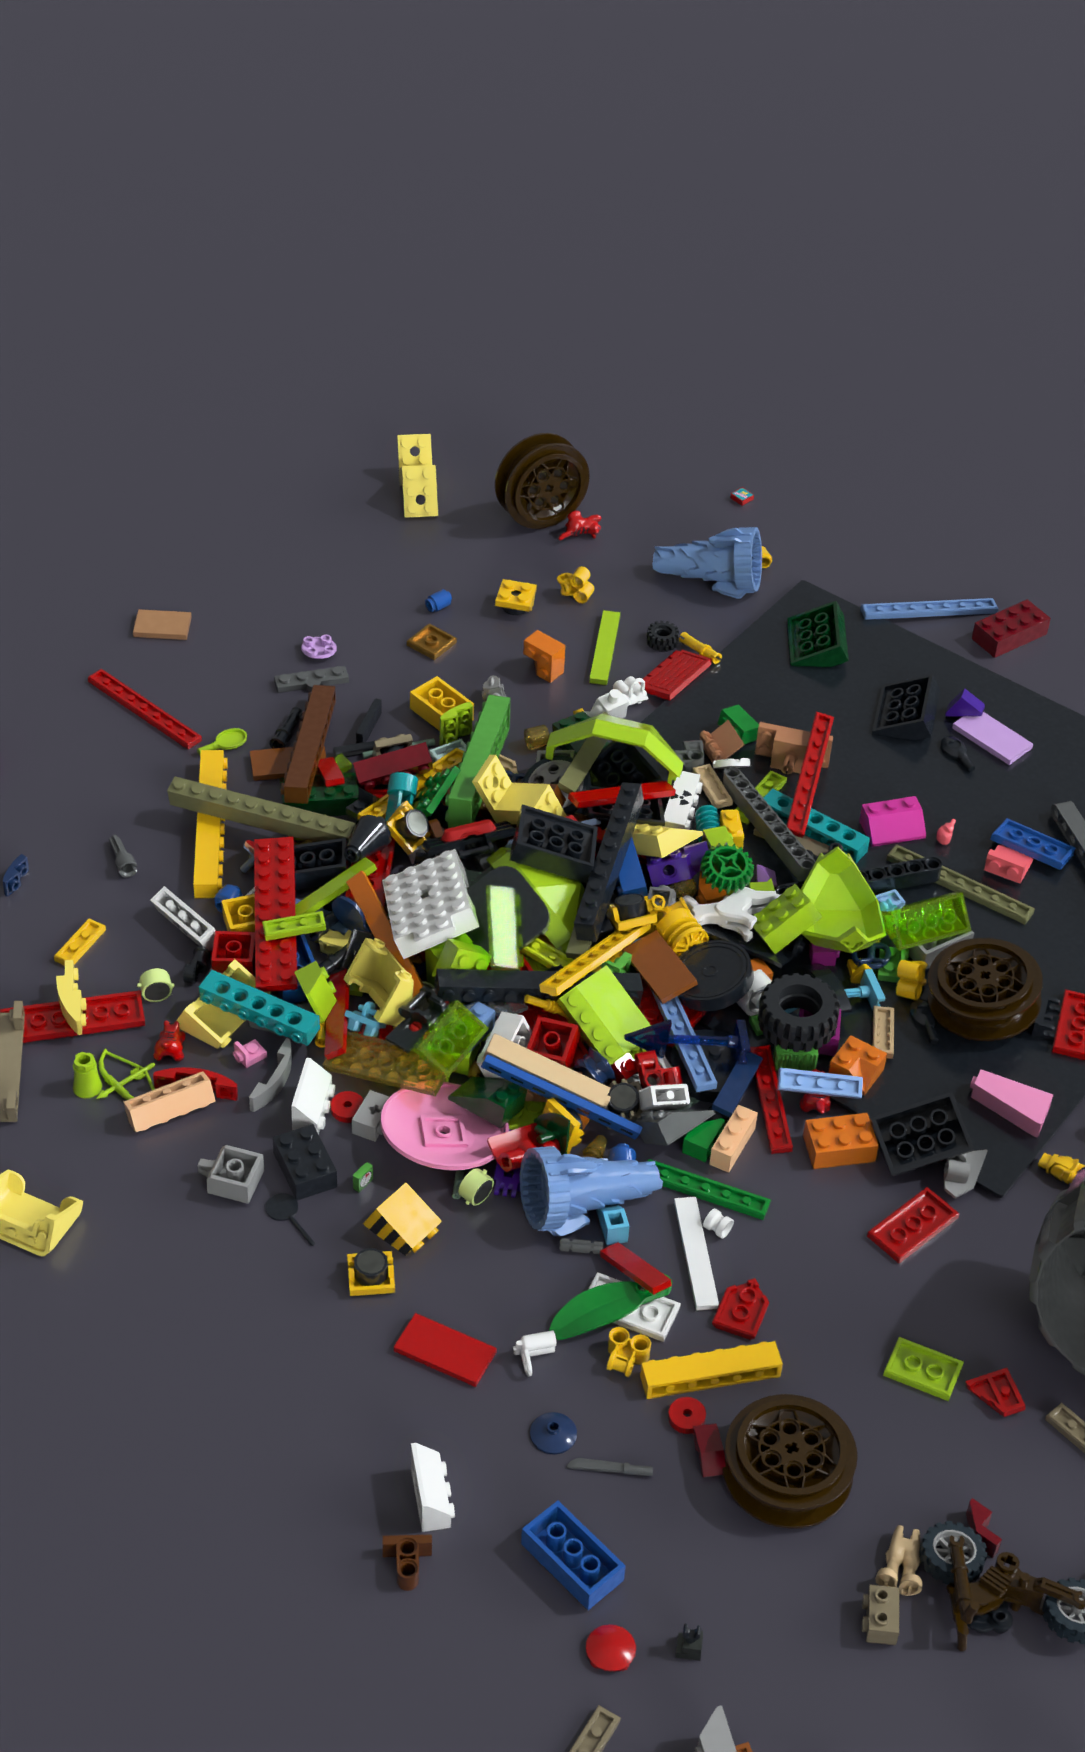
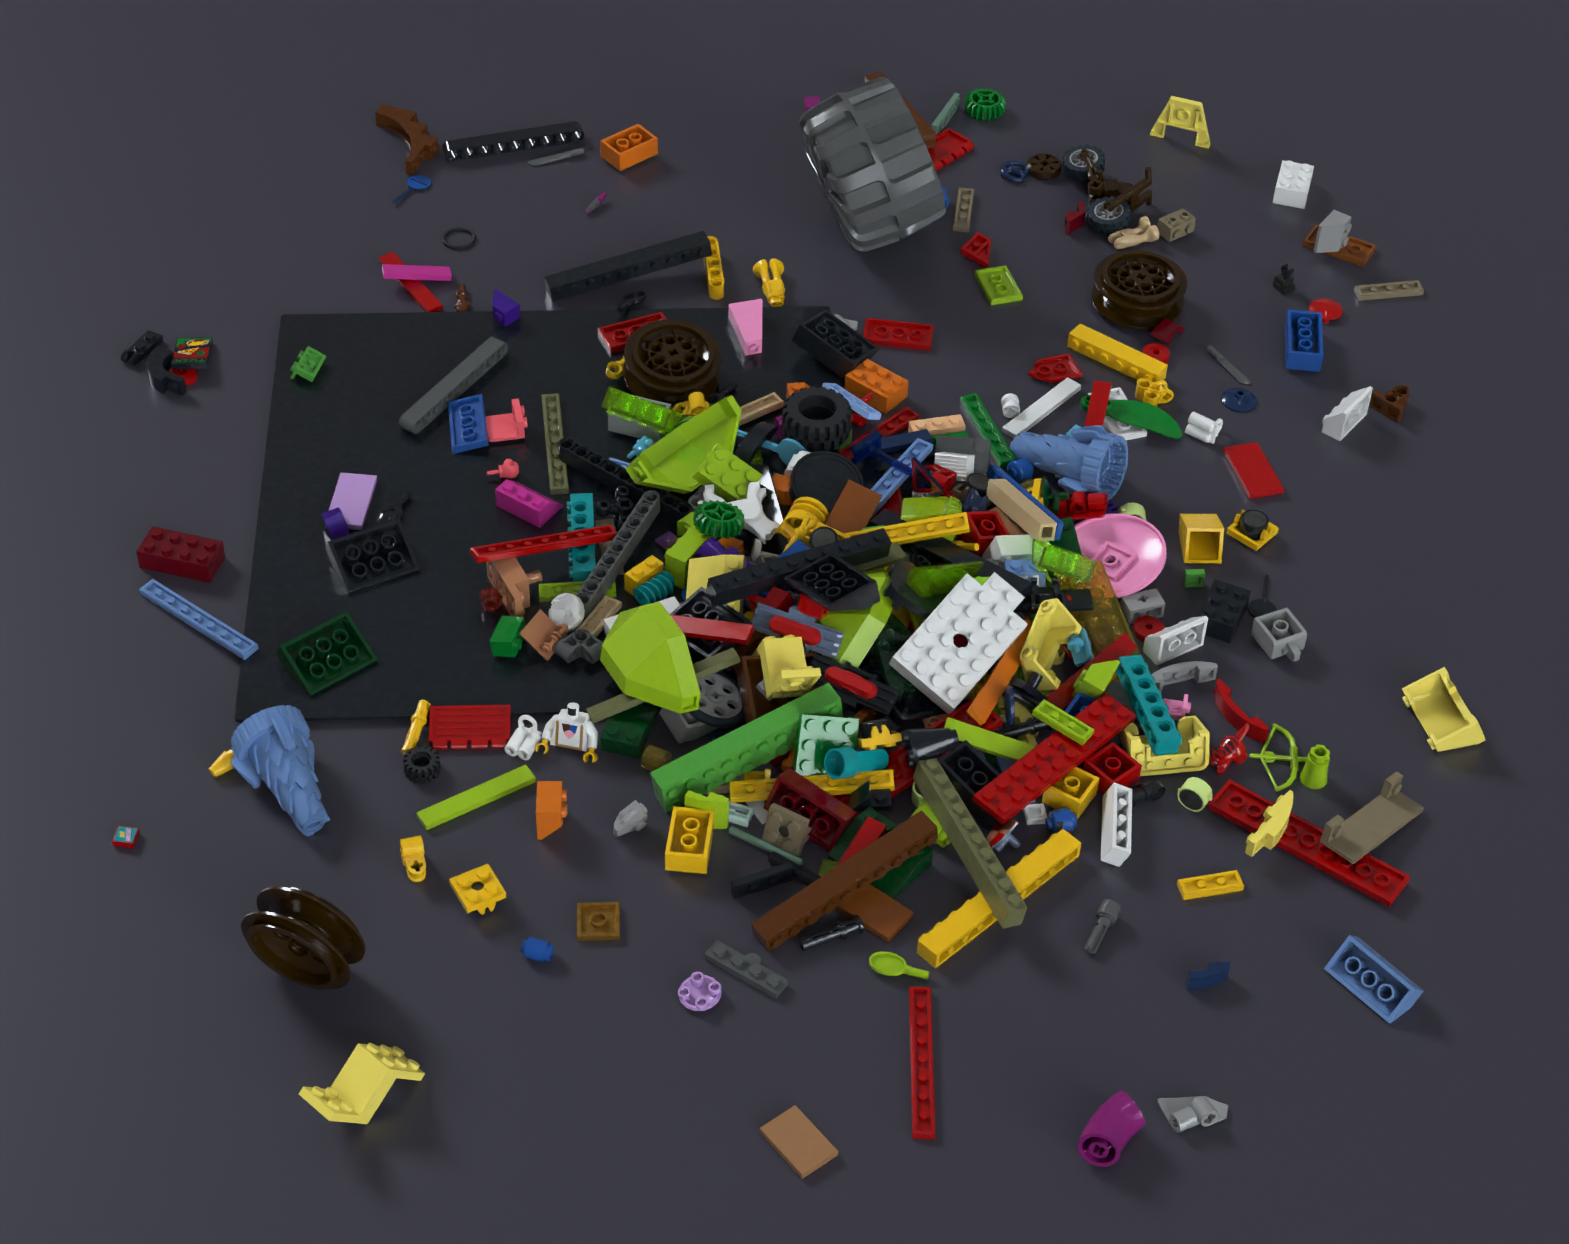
camera: 130 degrees left, 0 degrees up
(169, 1101) = (1275, 707): light nougat brick -> none

